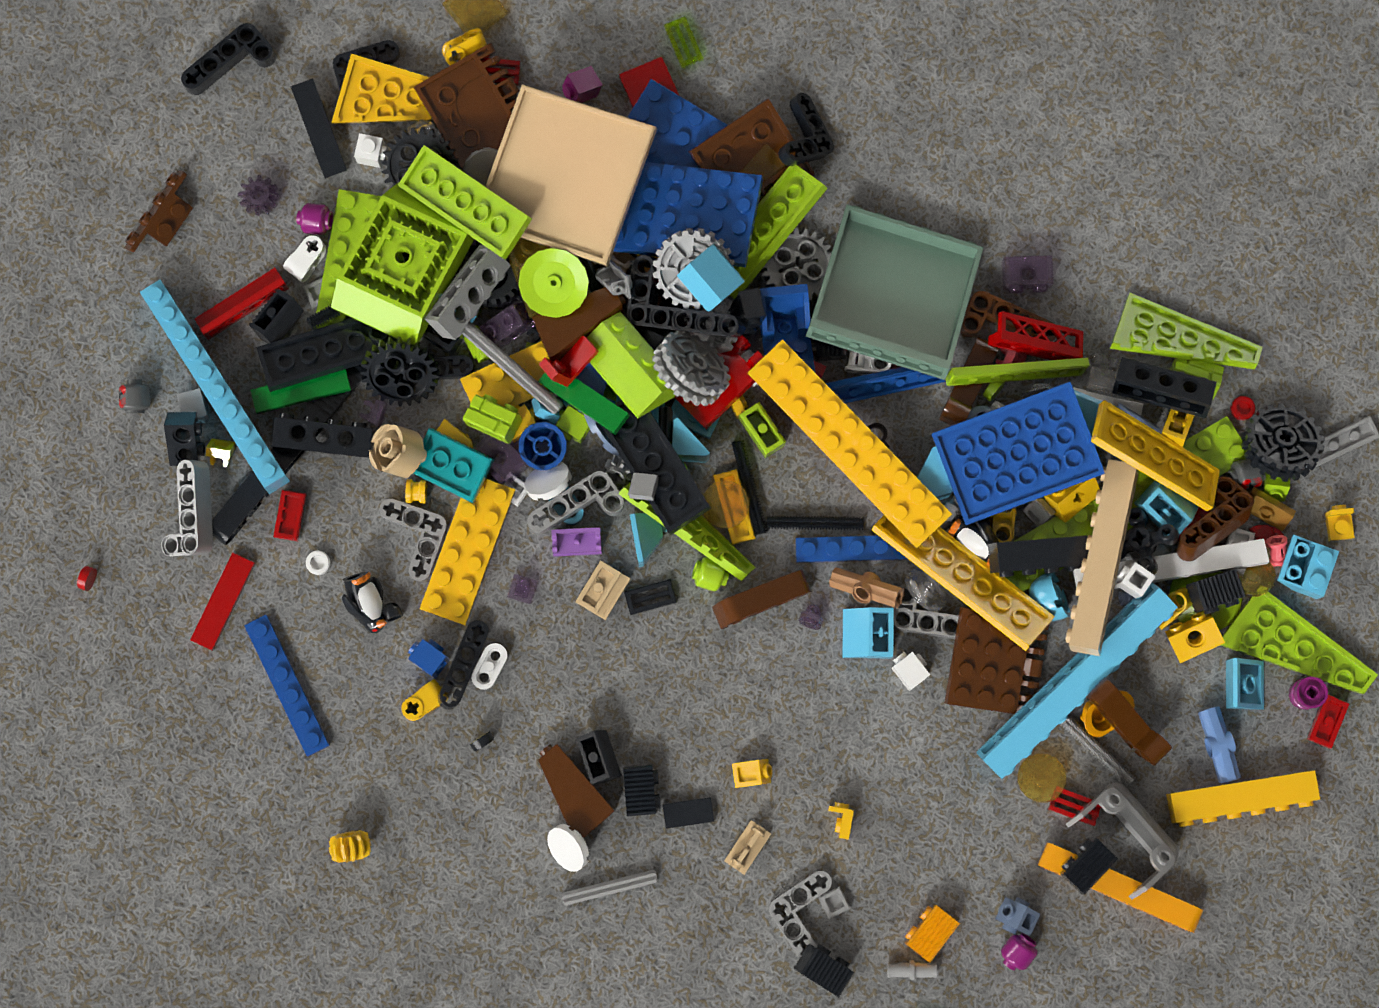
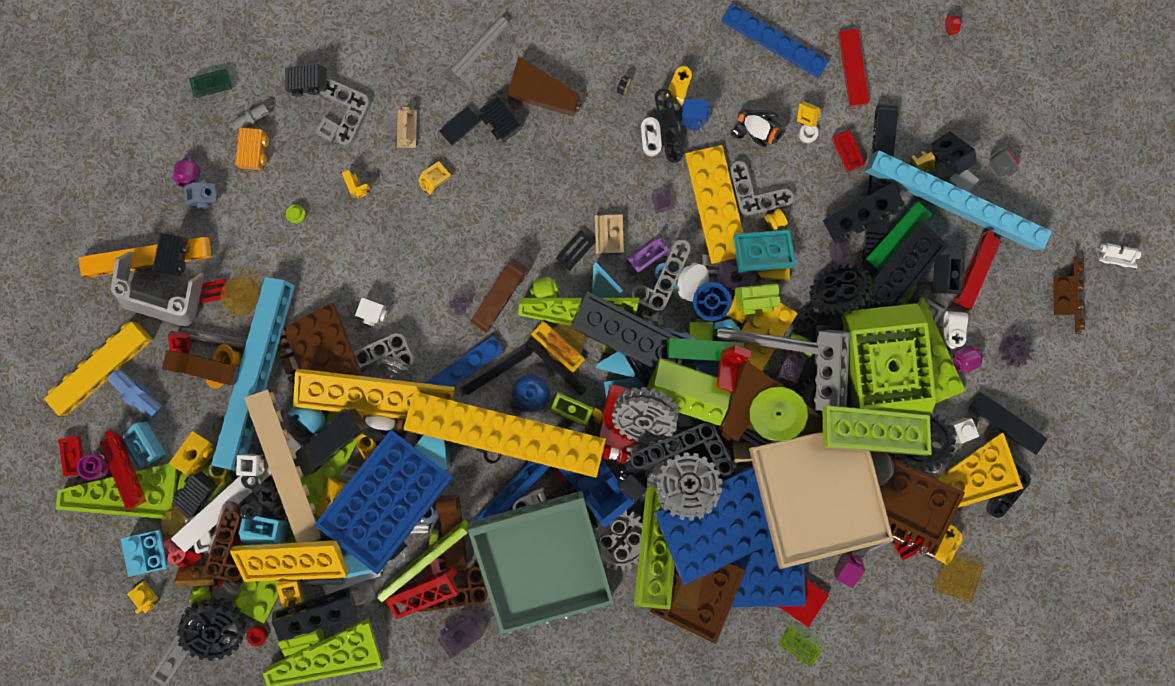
camera: 155 degrees right, 5 degrees up
(89, 227) = (1110, 253): none -> white hinge
(194, 512) = (914, 110): light grey beam -> none
(226, 63) = (1102, 426): black beam -> none
(306, 580) = (808, 114): none -> yellow tile
(397, 450) = (807, 236): tan brick -> none
(568, 847) = (522, 51): white tile -> none
(598, 756) = (540, 122): black brick -> none
(614, 279) = (737, 444): light grey hinge -> none
(643, 486) = (625, 312): light grey tile -> none
(710, 278) = (672, 485): medium azure slope -> none
(795, 475) = (530, 393): none -> blue cylinder
(800, 106) = (666, 637): black beam -> none
(866, 587) = (433, 346): medium nougat piece -> none
(868, 633) = (414, 317): medium azure slope -> none
(927, 830) = (295, 214): none -> lime plate
(1137, 770) = (179, 341): none -> red tile
(1281, 668) = (122, 470): none -> red fence

